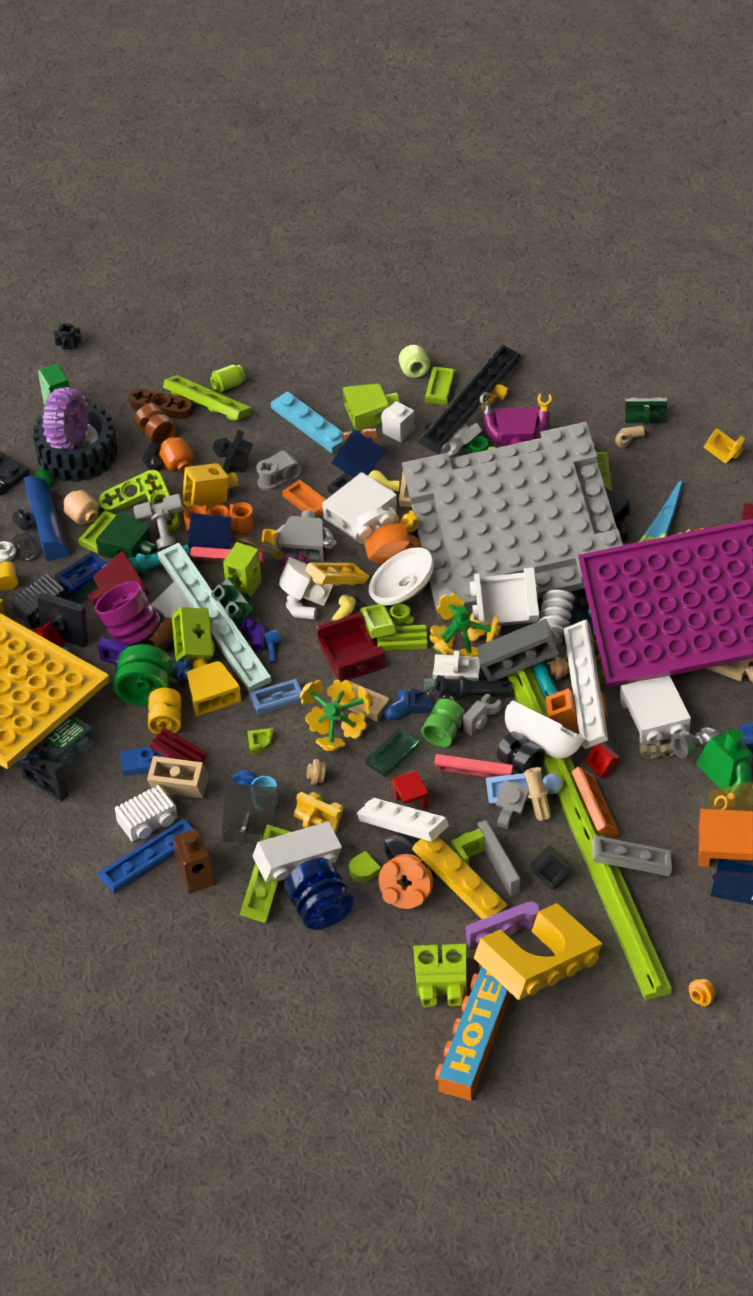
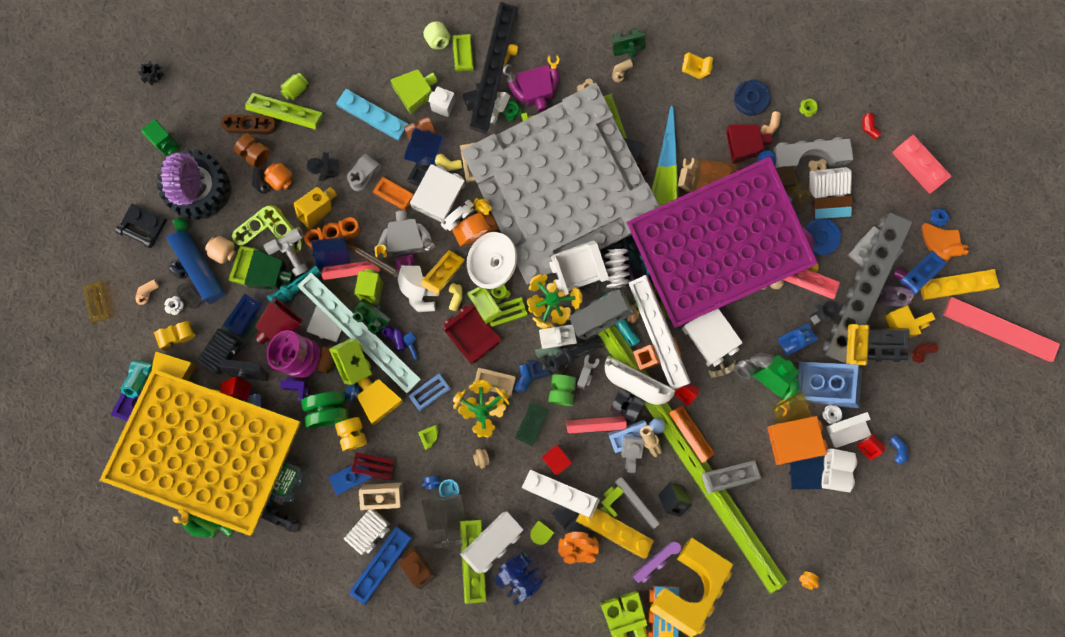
camera: 20 degrees left, 30 degrees up
(314, 811) = (493, 499): yellow hips -> none

